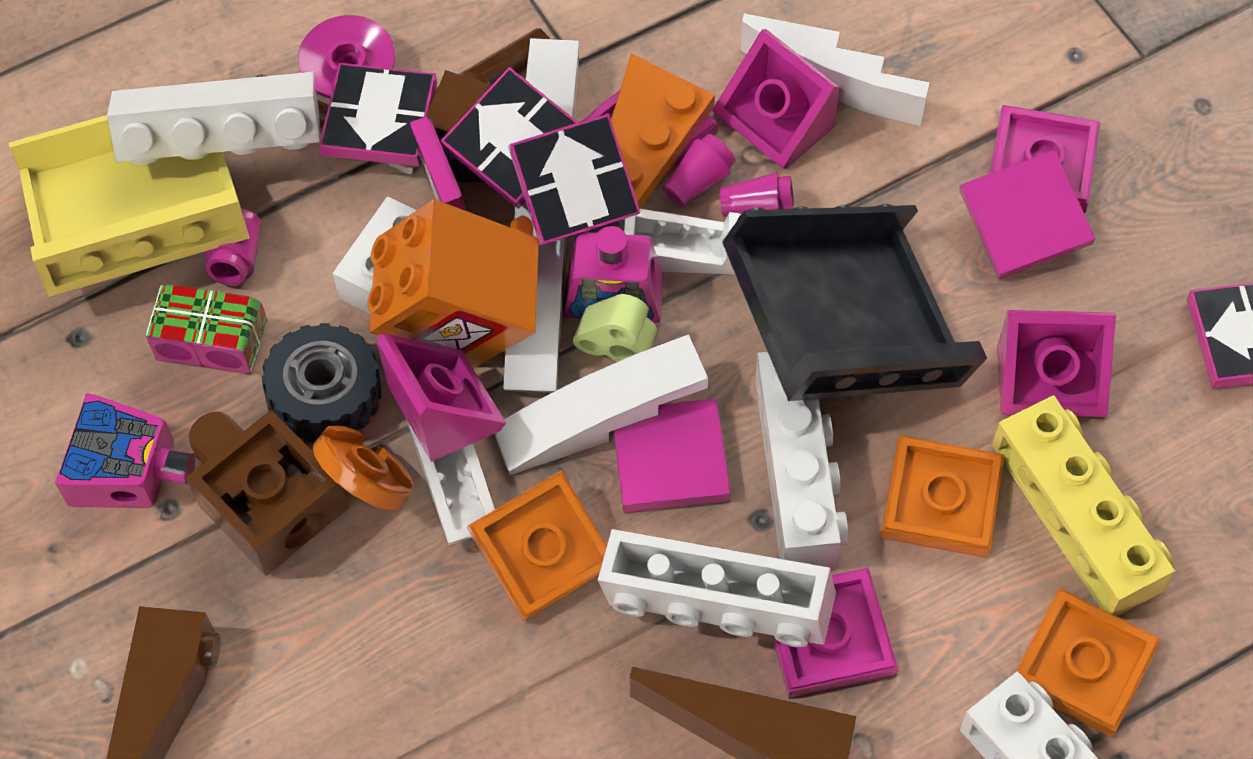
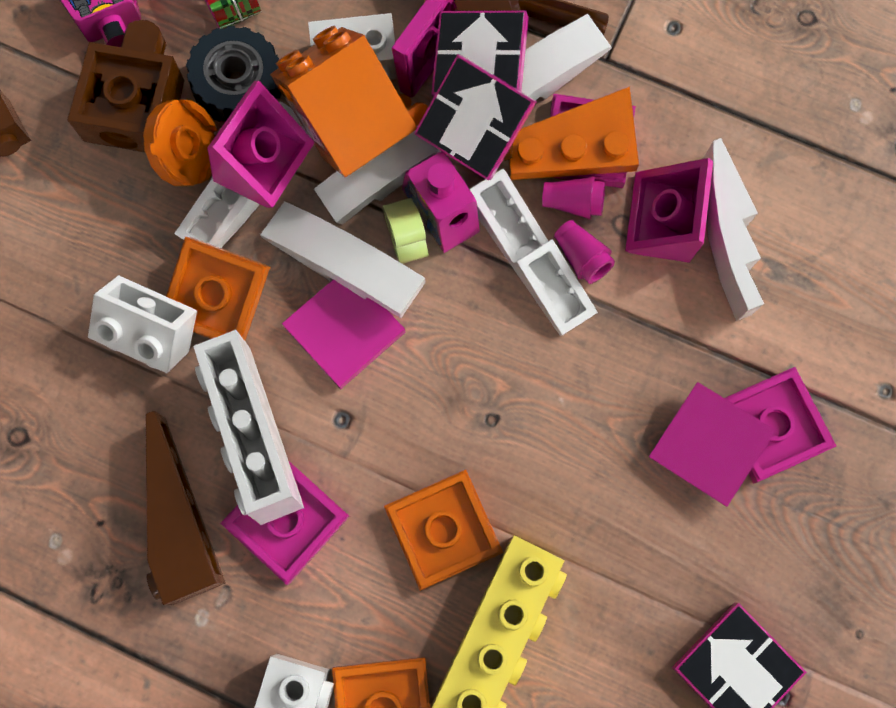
camera: 50 degrees right, 15 degrees up
(527, 628) = (141, 323): none -> white brick
(800, 473) = (391, 413): white brick -> none
(845, 302) = (529, 365): black panel -> none
(1056, 356) = (598, 545): dark pink slope -> none

